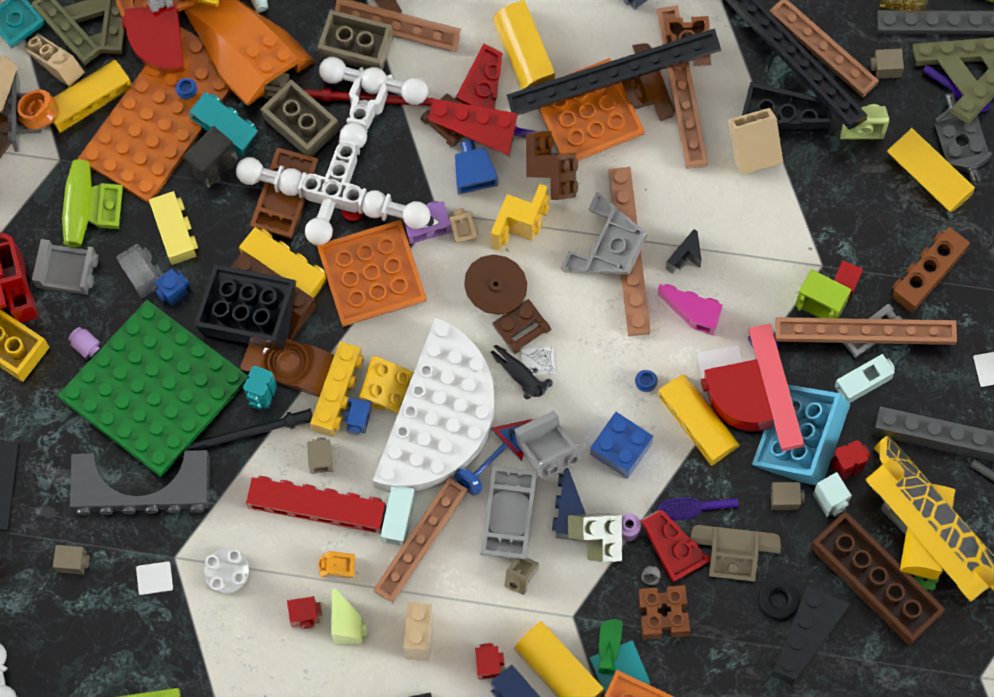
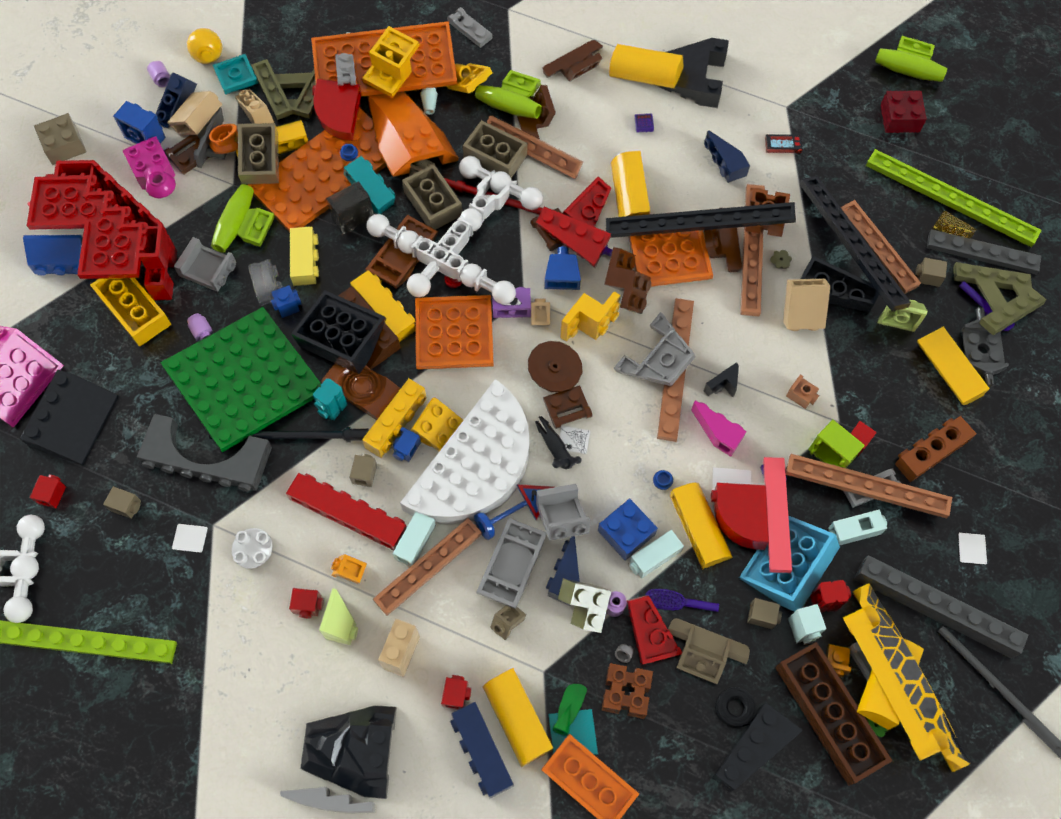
camera: 10 degrees right, 5 degrees down
(84, 119) = (258, 153): none -> dark tan brick
(658, 463) = (655, 554): none -> light aqua brick
(716, 85) = (781, 259): none -> olive plant
(774, 249) = (803, 392): none -> nougat brick
(873, 523) = (839, 659): none -> light orange bracket

